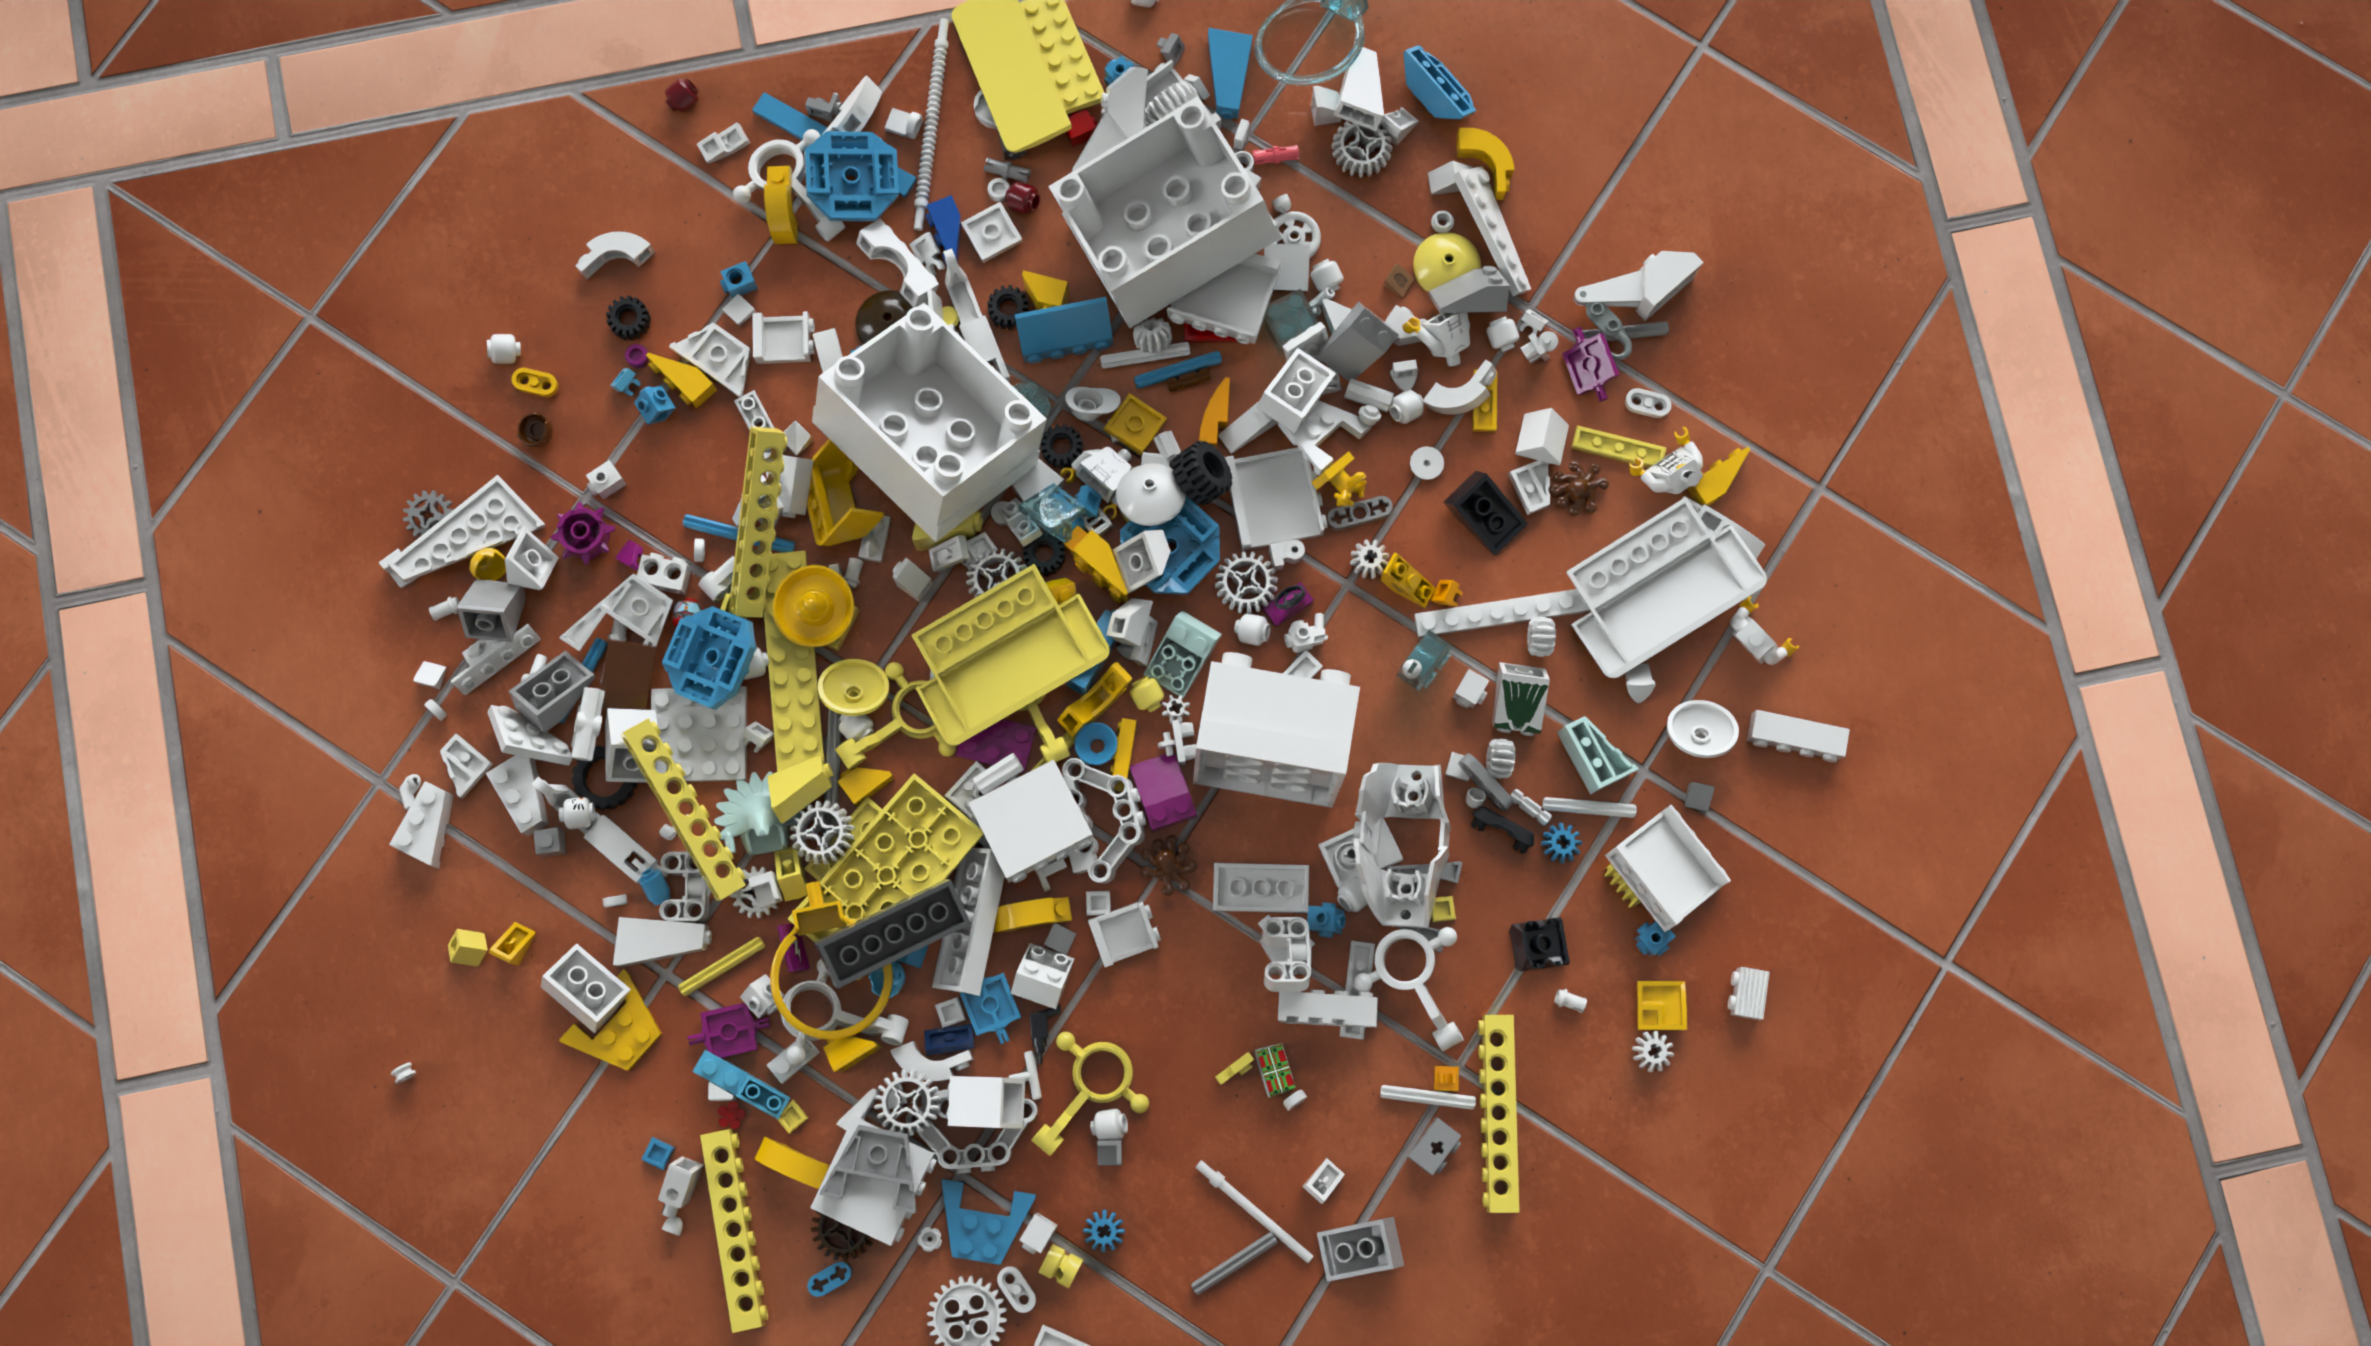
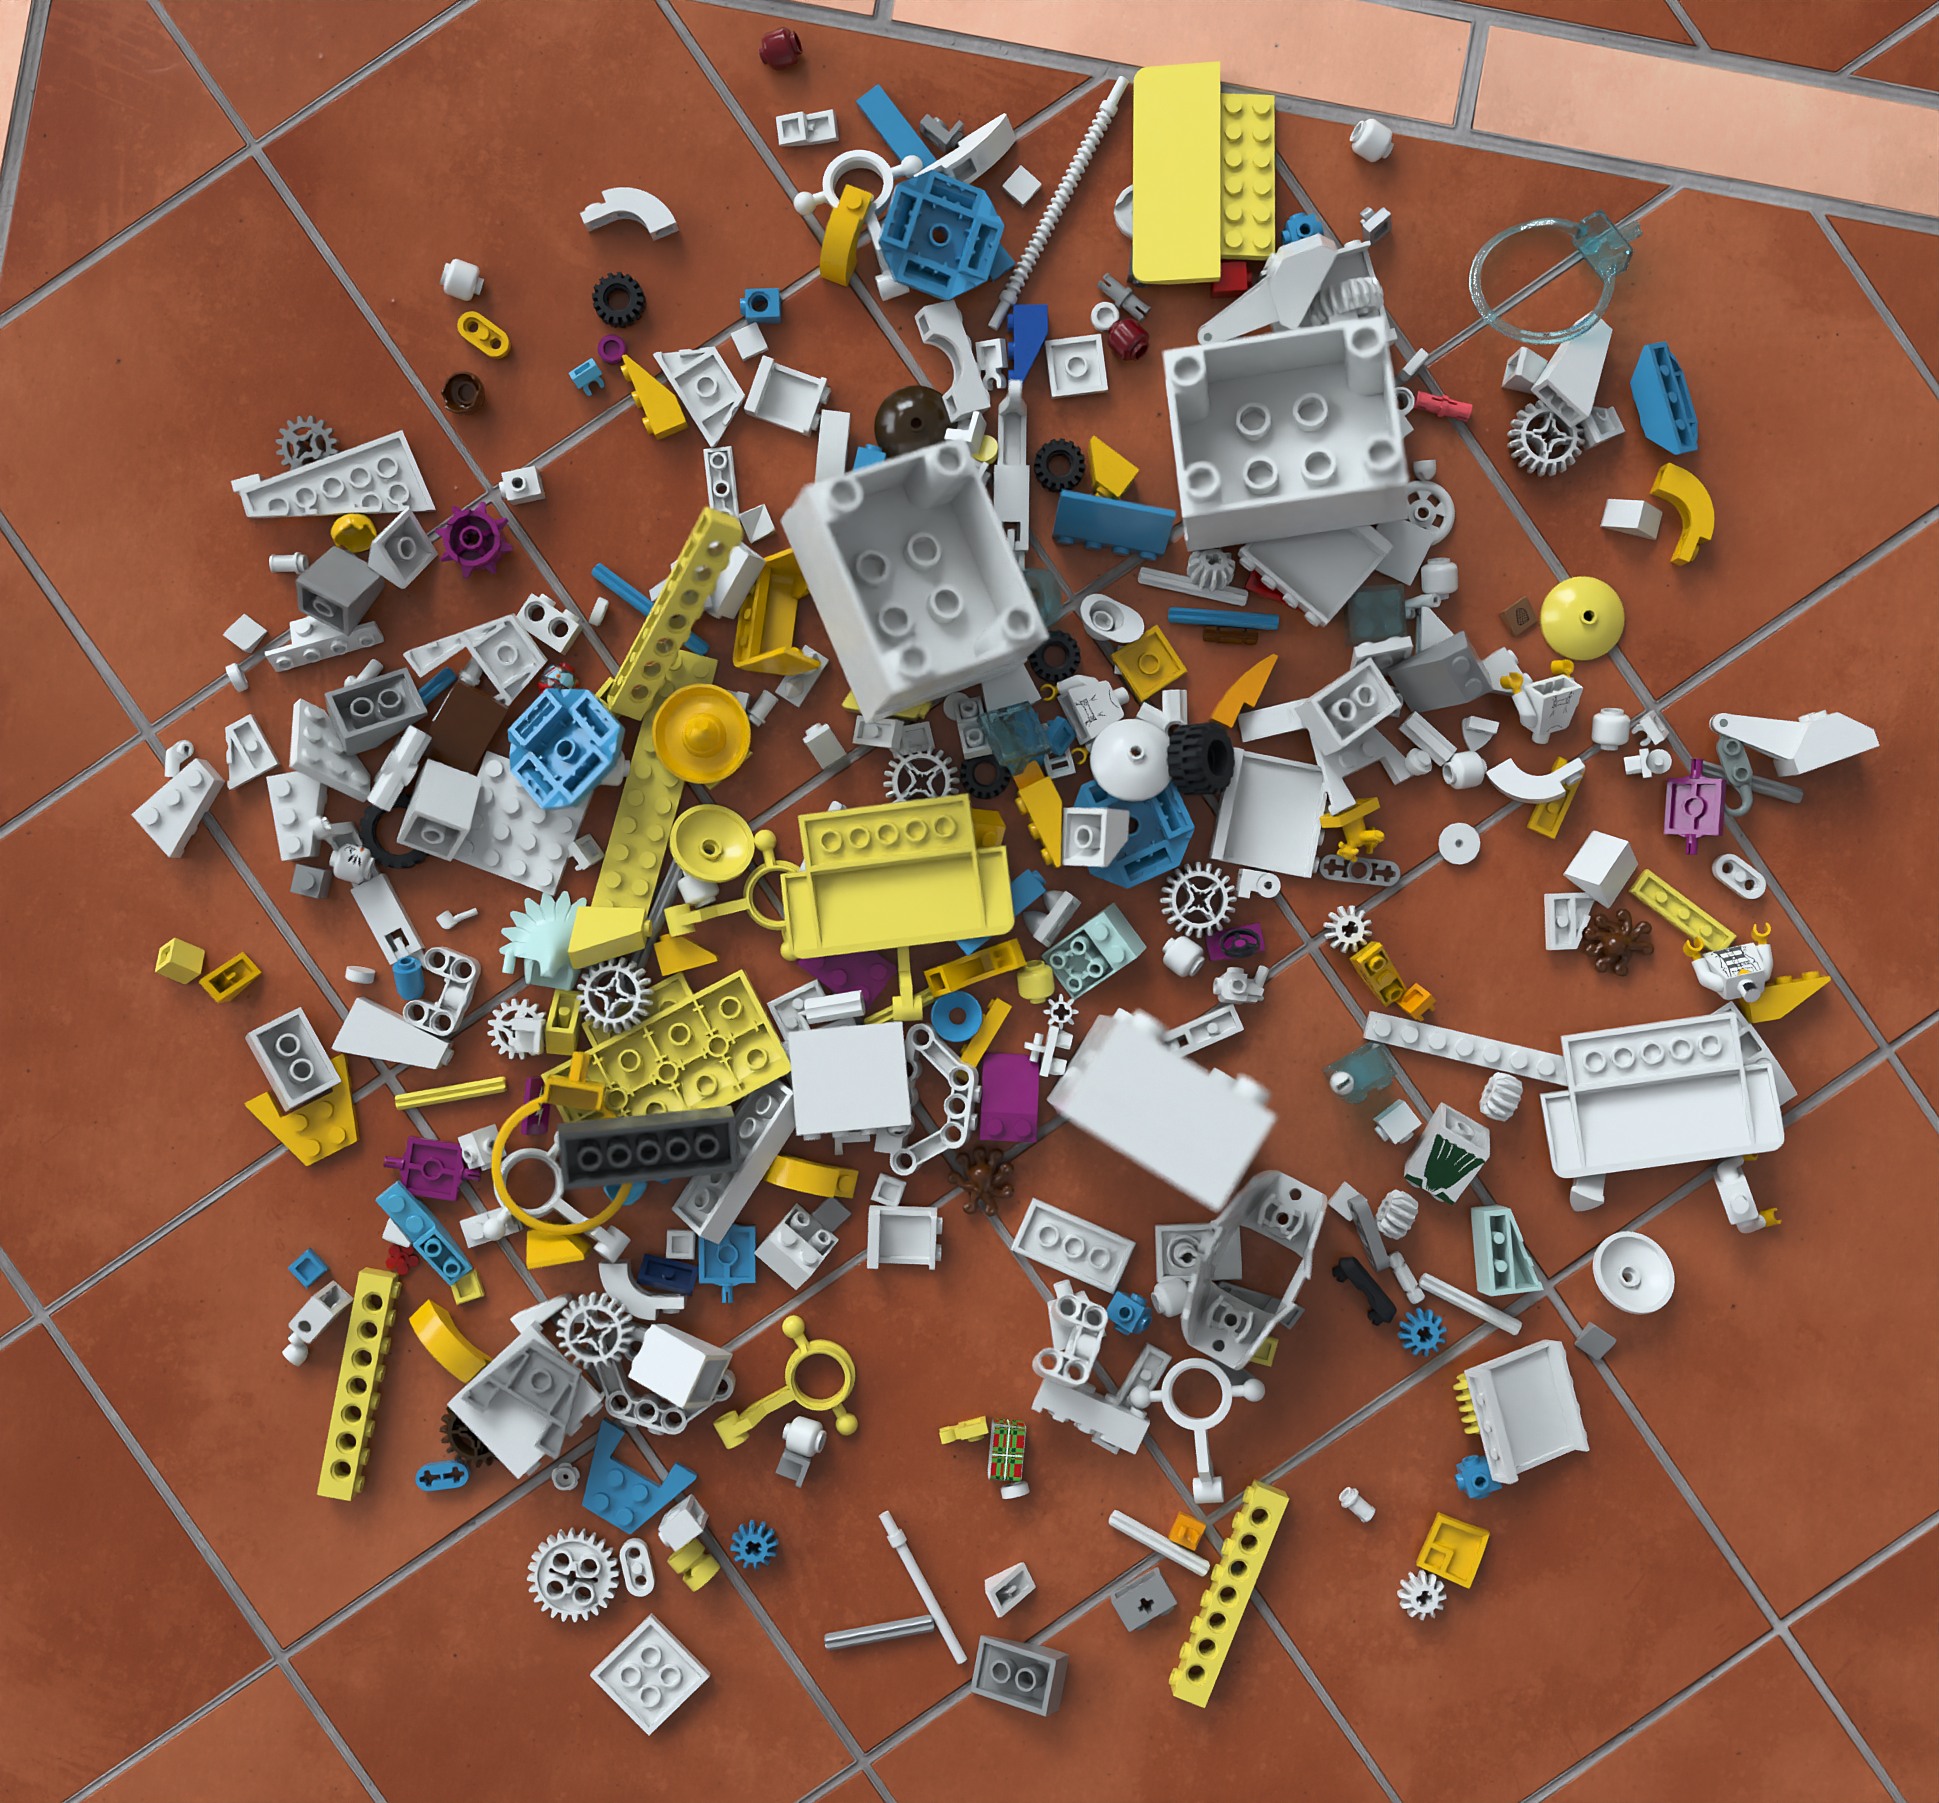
camera: 25 degrees right, 10 degrees up
(403, 1073) = (62, 1071): white bush -> none
(629, 554) = (518, 585): magenta tile -> none
(654, 404) = (610, 418): dark azure brick -> none
(670, 803) = (480, 1013): light yellow brick -> none
(717, 583) = (605, 658): white piece -> none
(913, 125) = (1037, 197): white tile -> none
(1031, 1075) = (741, 1347): white piece -> none
(1039, 1029) = (770, 1303): black piece -> none
(1129, 622) = (1050, 897): white slope -> none
(1198, 85) = (1387, 282): white tile -> none
(1229, 64) = (1432, 275): dark azure slope -> none
(1442, 215) = (1605, 559): white plate -> none
(1473, 292) = (1597, 669): light grey slope -> none
(1475, 797) = (1349, 1243): white hinge -> none
(1484, 208) = (1655, 566): white wing -> none
(1485, 511) = (1500, 927): black slope -> none
(1539, 944) = (1349, 1430): black slope -> none
(1749, 993) = (1553, 1575): white brick -> none
(1797, 735) = (1735, 1319): white brick -> none

